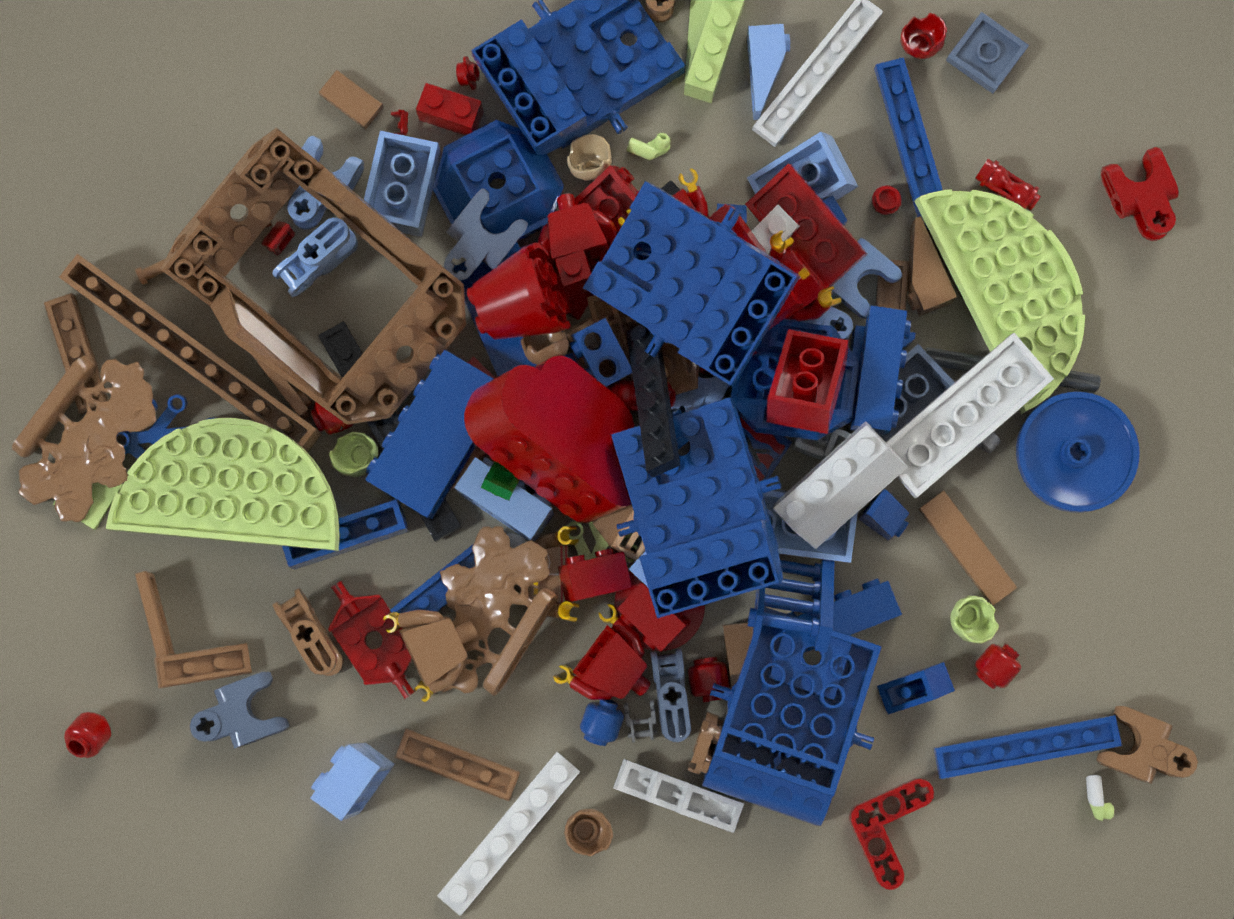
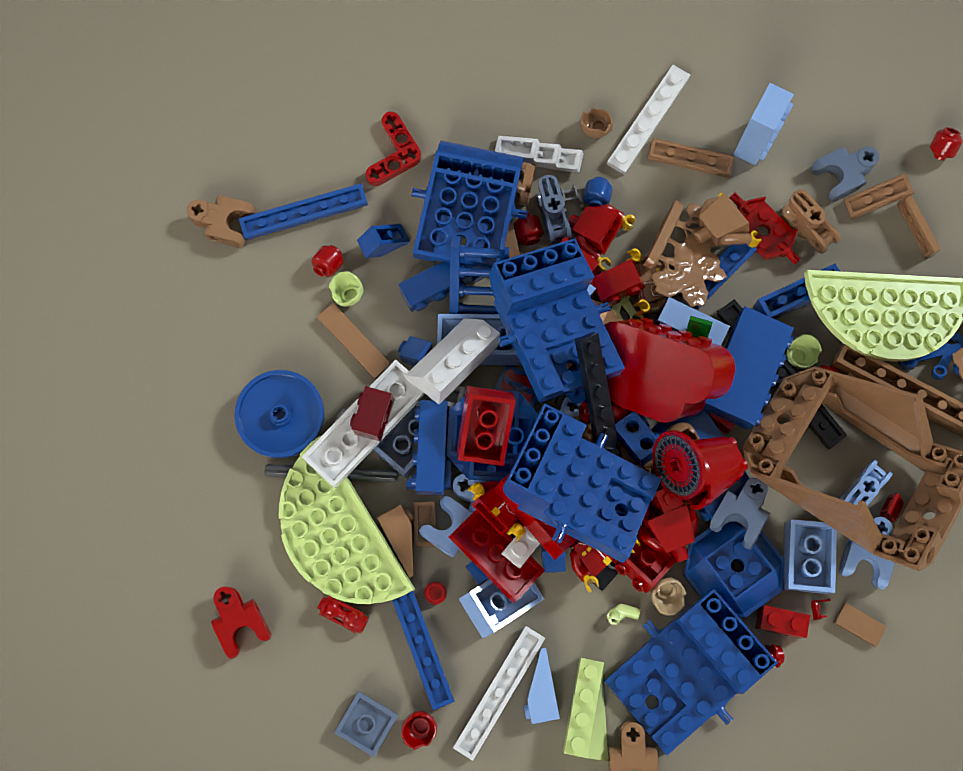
camera: 175 degrees right, 5 degrees down
(560, 295) = (679, 464): none -> piece
(956, 419) = (372, 413): none -> dark red brick
(1096, 800) = (255, 185): white arm -> none

